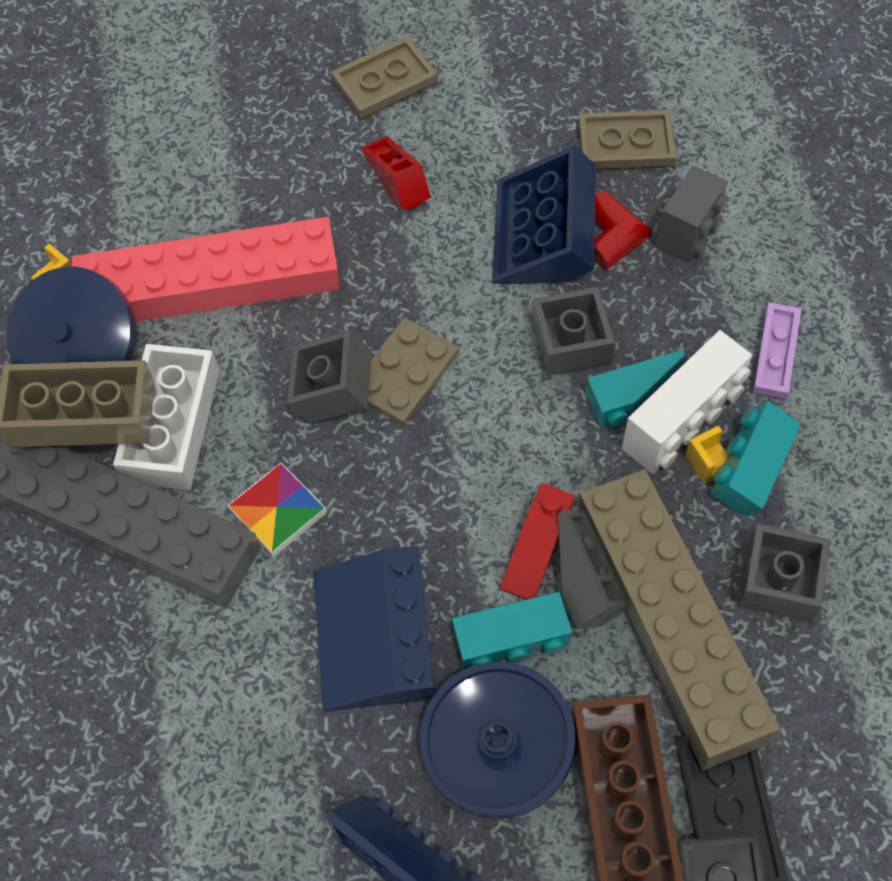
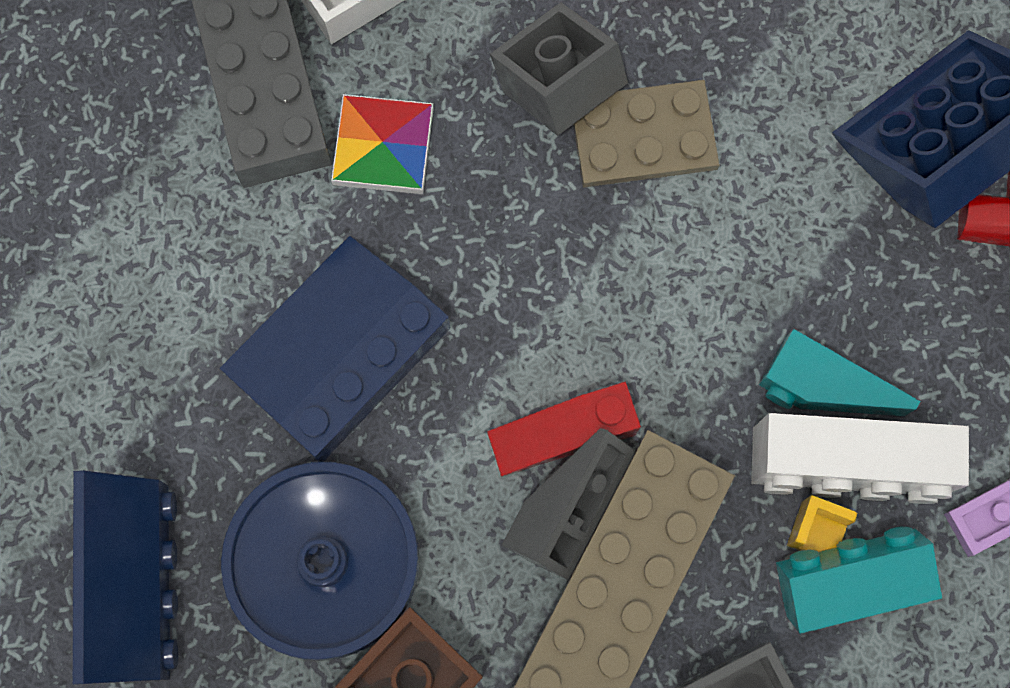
camera: 45 degrees right, 15 degrees up
(513, 631) = (445, 483): teal brick -> none
(572, 331) = (840, 266): dark grey brick -> none

